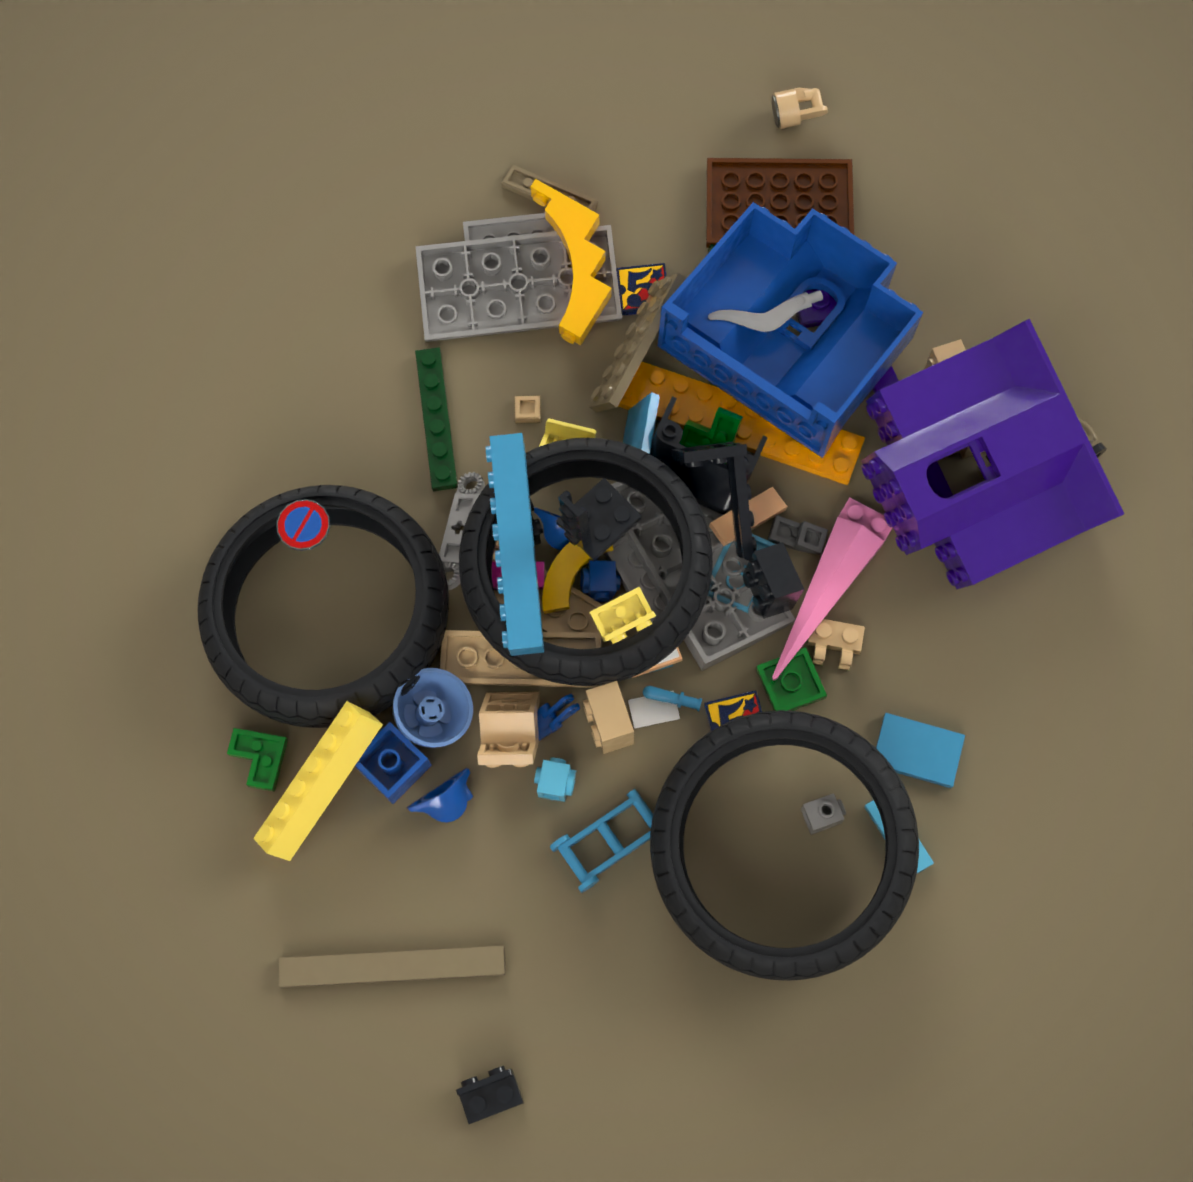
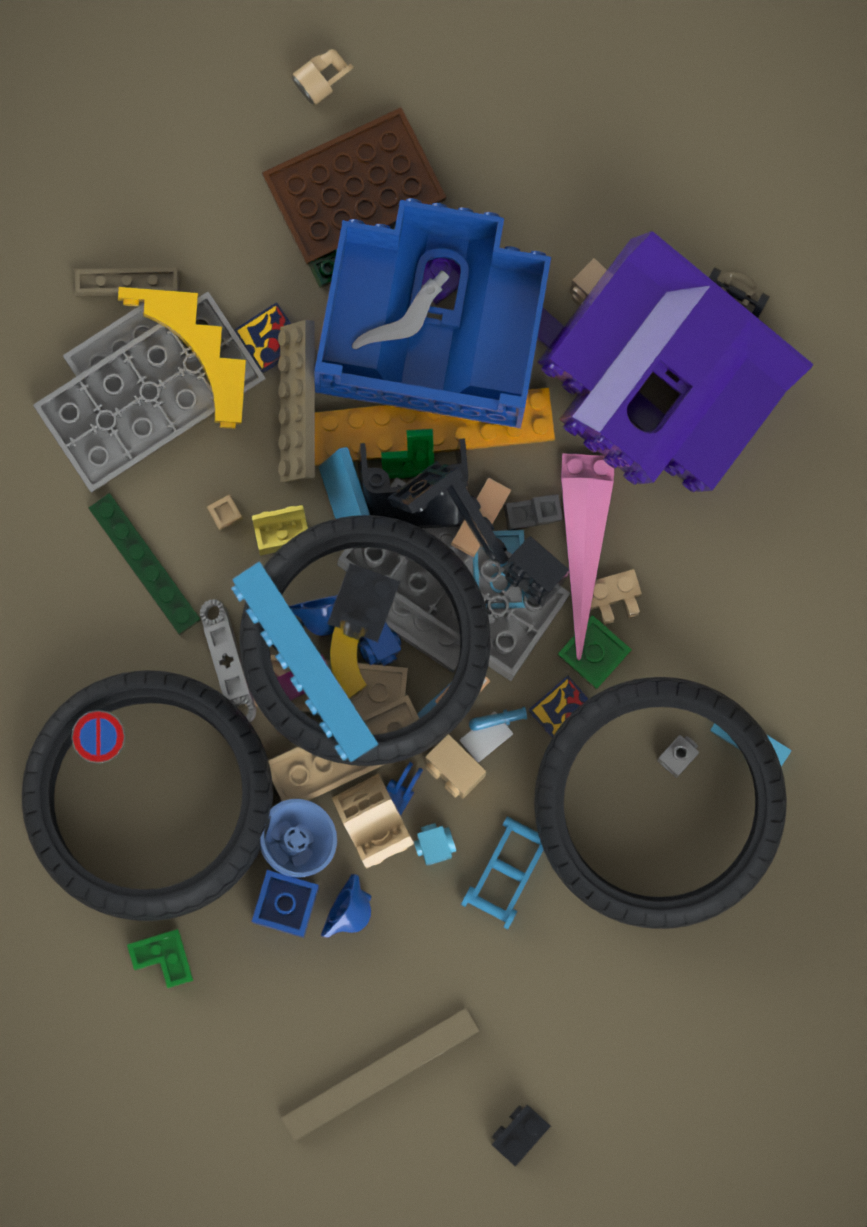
camera: 35 degrees left, 10 degrees up
(317, 781) = (234, 953): light yellow brick -> none
(622, 615) = (431, 680): light yellow bracket -> none
(920, 749) = (732, 657): dark azure tile -> none

